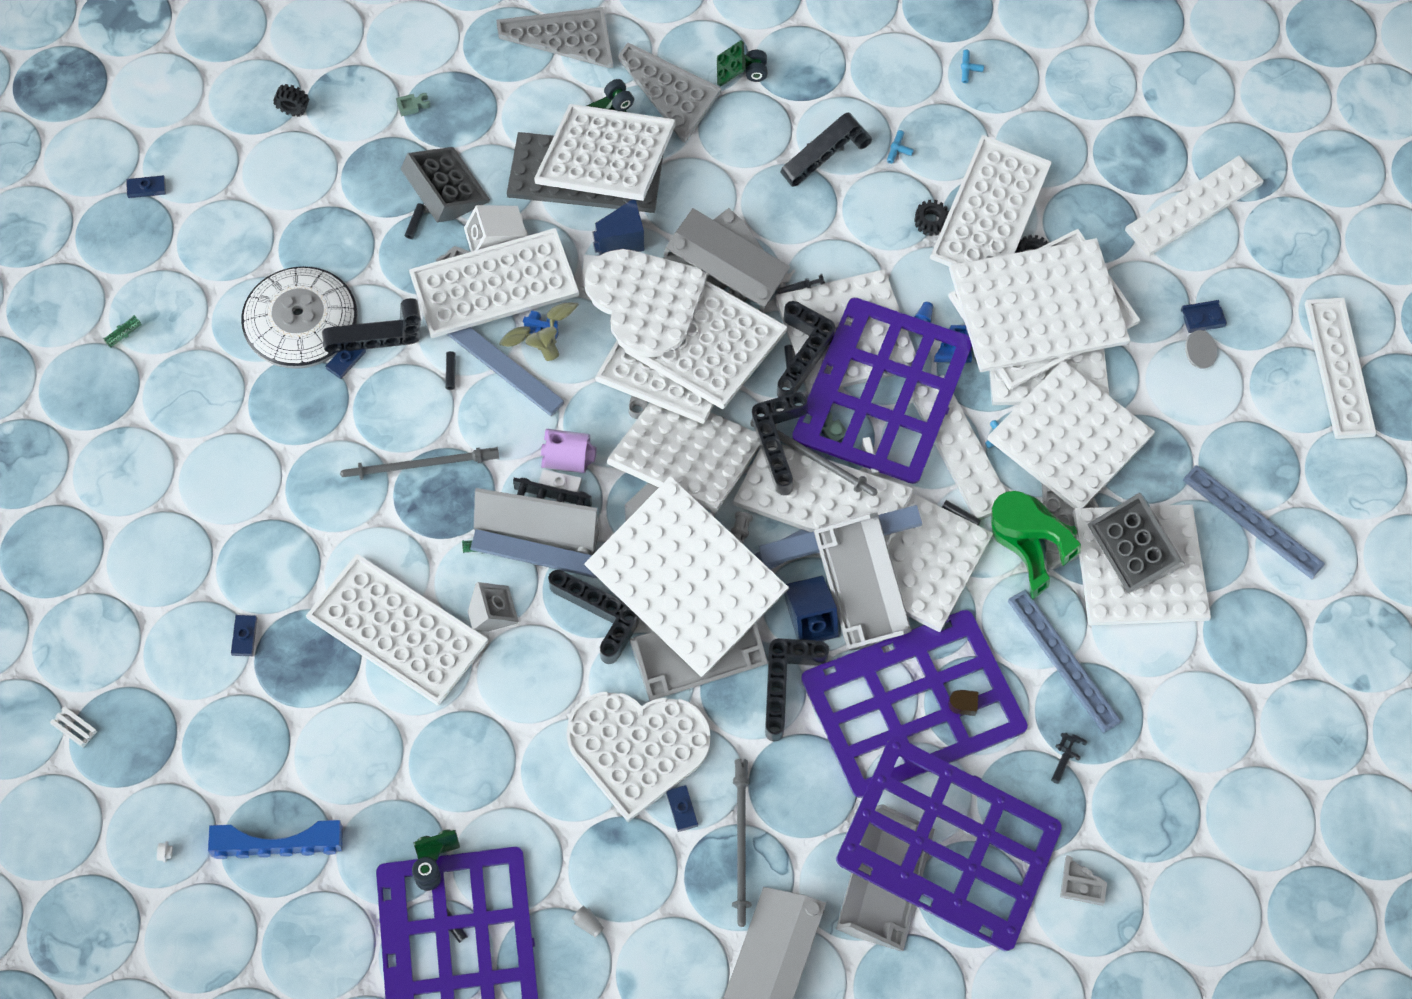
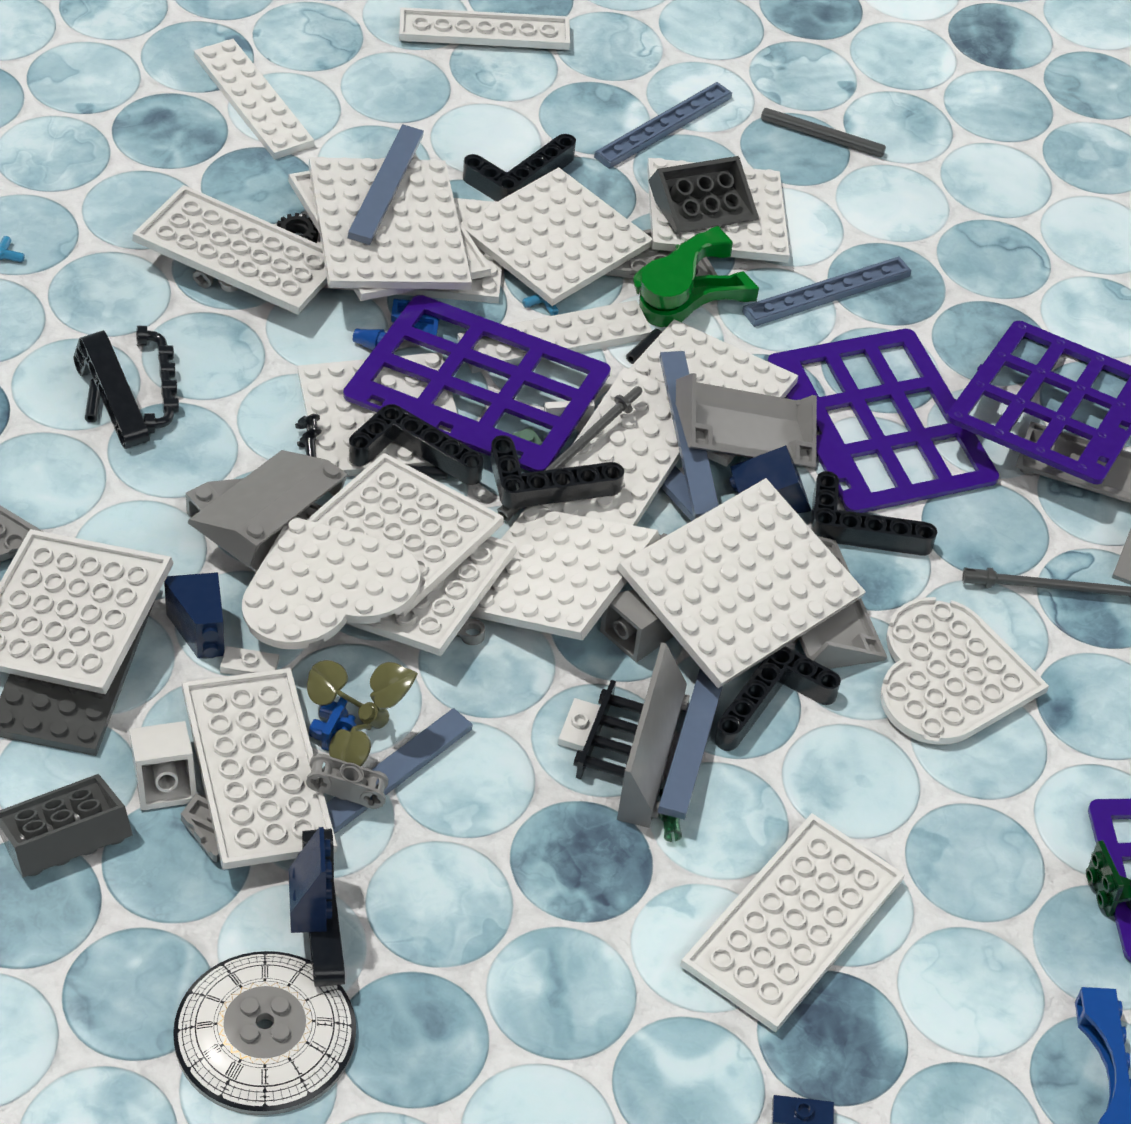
camera: 90 degrees left, 15 degrees down
(344, 361) = (359, 974): dark blue plate -> none
(378, 315) = (311, 886): none -> dark blue slope
(415, 220) = (119, 868): black piece -> none
(450, 370) = (387, 838): black piece -> none
(477, 455) = (531, 810): dark grey bar -> none
(480, 346) = (347, 781): none -> light grey piece
(491, 607) = (771, 806): light grey slope -> none
(567, 451) = (541, 701): lavender cylinder -> none
(682, 808) = (1027, 637): dark blue plate -> none
(845, 189) = (166, 371): none -> black bar
(896, 147) = (113, 331): dark azure piece -> none
(930, 208) = (228, 303): black tyre -> none
(964, 702) = (886, 370): dark brown piece -> none
(1067, 755) = (938, 304): black piece -> none
(1076, 293) = (385, 185): none -> sand blue tile
(1081, 884) = (1083, 314): light grey wing -> none
(1152, 410) = (500, 184): none -> black beam
(1201, 349) = (451, 120): light grey piece -> none
(1203, 316) = (403, 111): dark blue plate -> none
(1280, 658) = (823, 132): none -> dark grey axle

